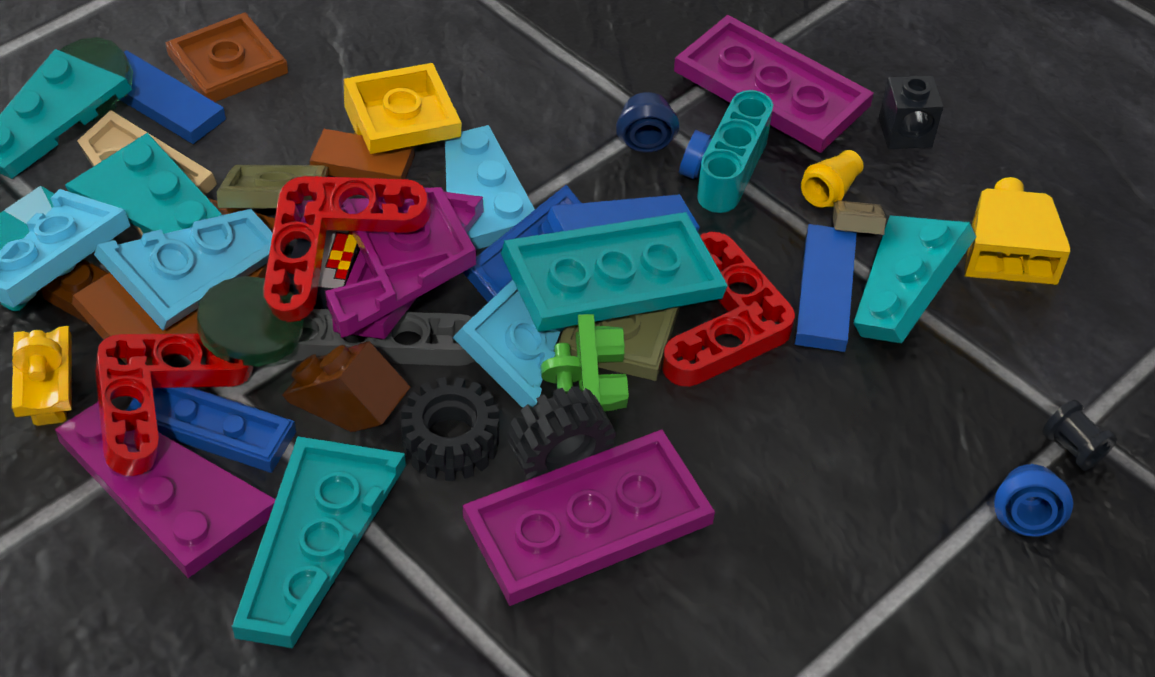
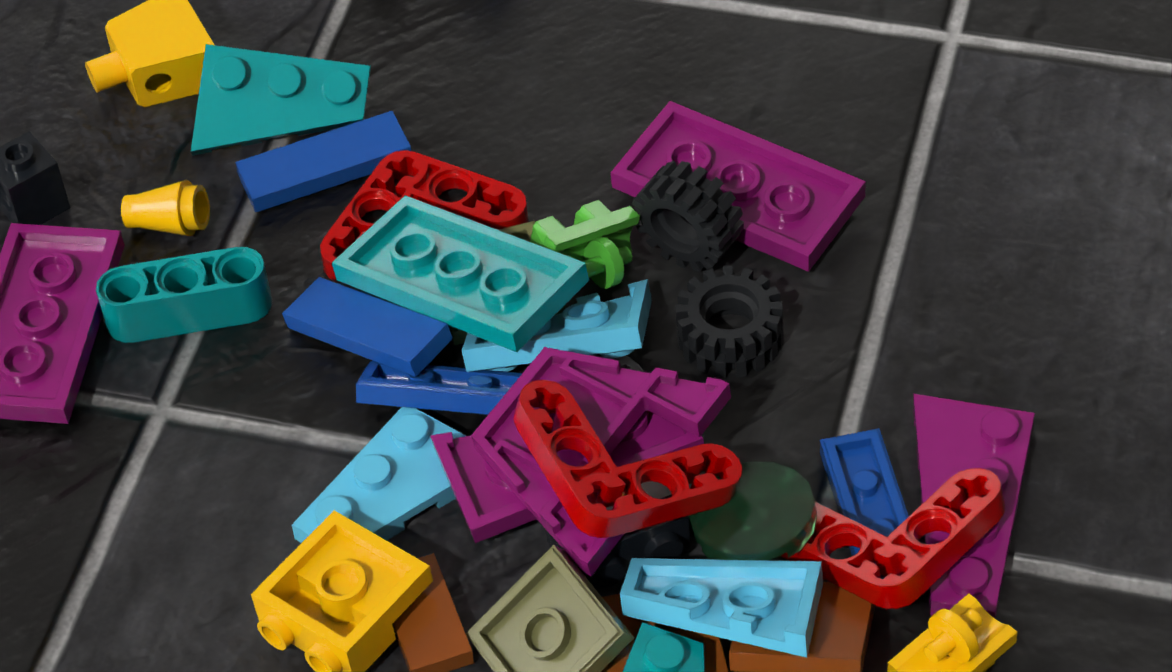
camera: 115 degrees left, 0 degrees up
(310, 534) = (887, 361): teal wing -> none
(347, 387) = (757, 408): reddish brown slope -> none
(647, 122) = (190, 384): dark blue cone -> none
(692, 158) = (213, 325): blue tile -> none
(858, 217) = (216, 165): dark tan tile -> none

